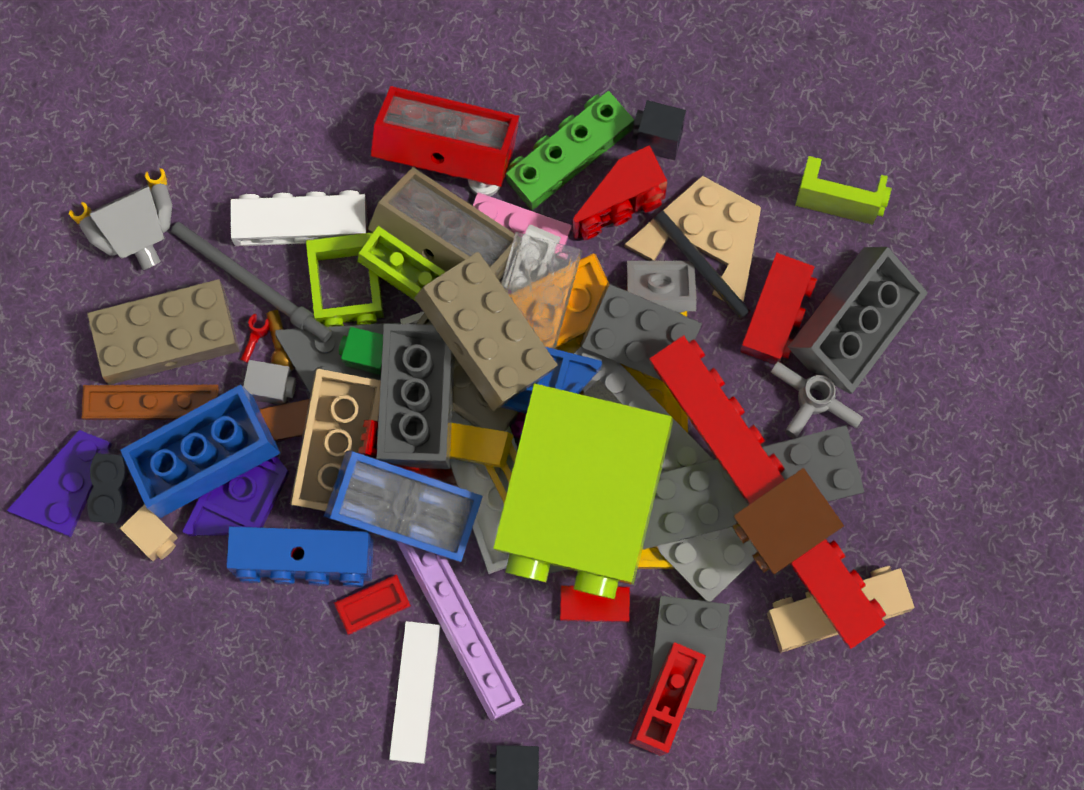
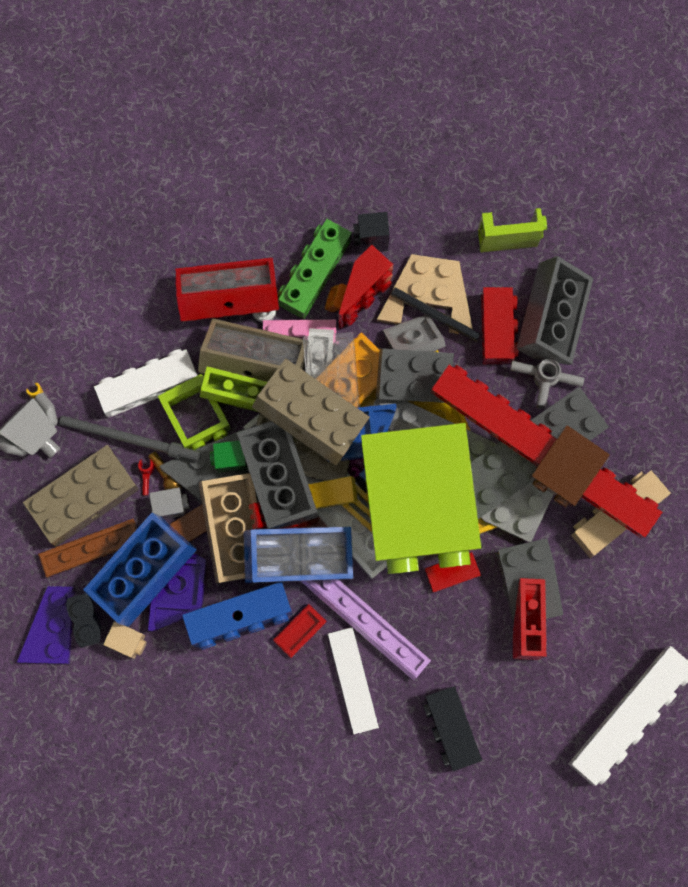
camera: 25 degrees left, 0 degrees up
(580, 196) = (335, 297): none -> orange tile

